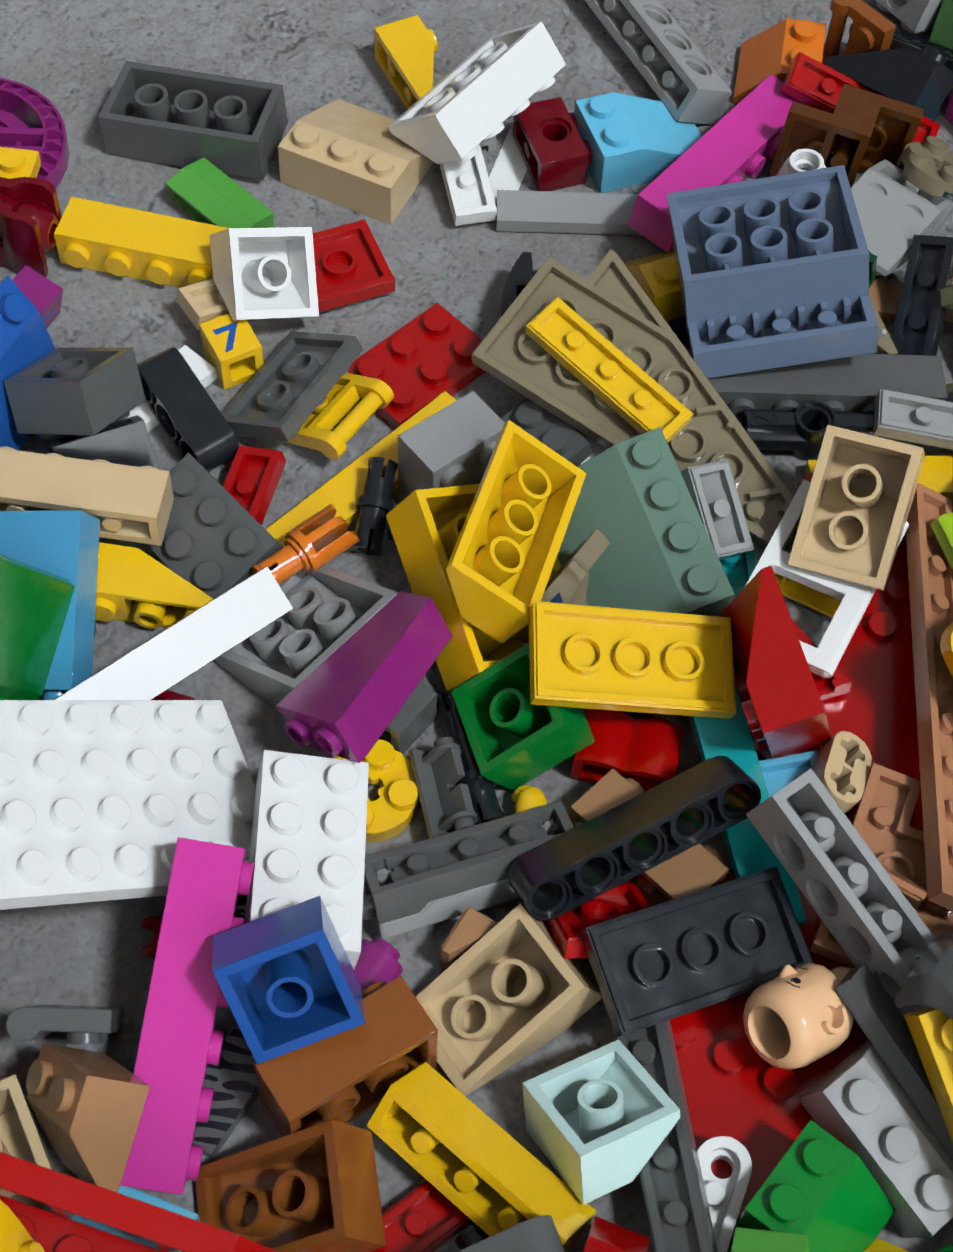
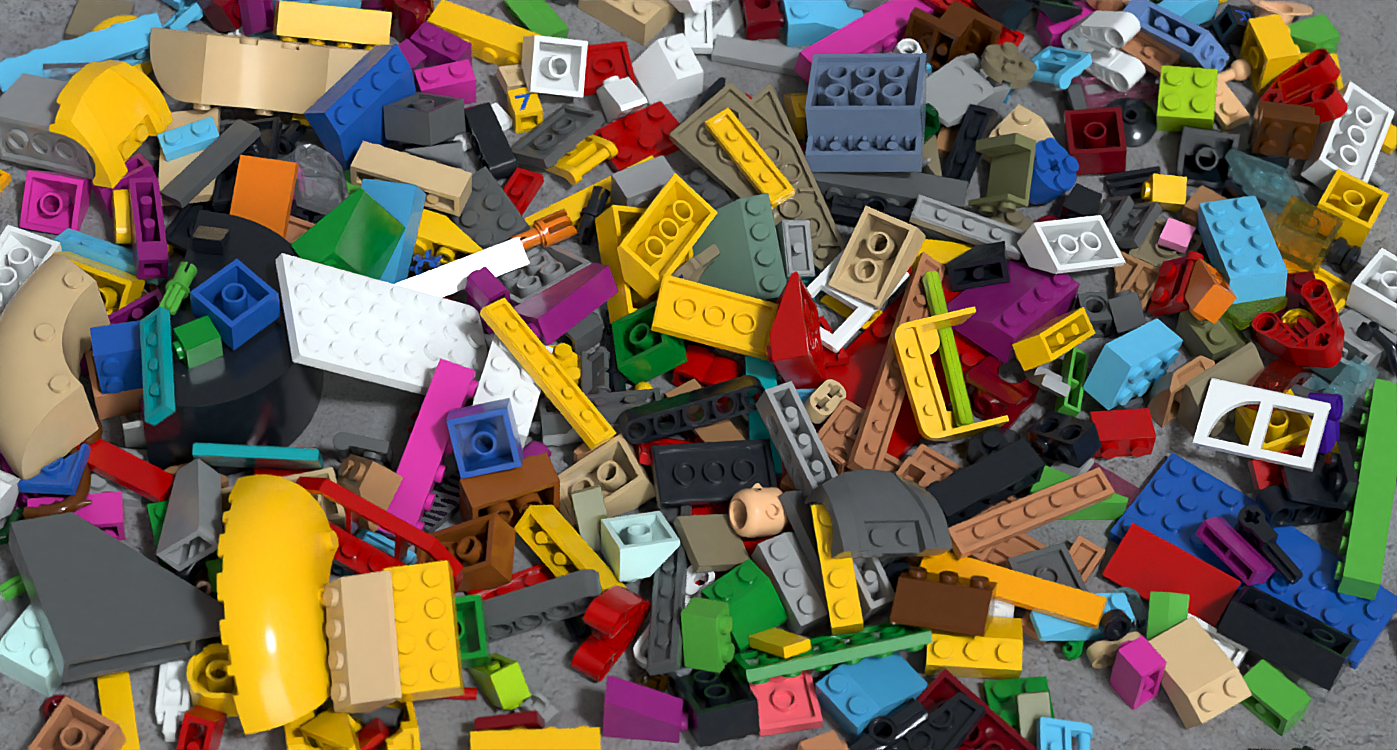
camera: 10 degrees right, 5 degrees down
(91, 278) = (440, 45): none -> magenta brick
(102, 321) = (448, 79): none -> dark pink brick
(133, 633) = (433, 262): none -> blue gear
(236, 684) = (484, 290): none -> magenta brick
(372, 819) = (547, 373): none -> yellow tile
(378, 307) = (620, 97): none -> white slope
(440, 255) = (668, 71): none -> white slope
(496, 1072) = (588, 511): none -> tile
(728, 1092) = (710, 542): none -> dark tan tile

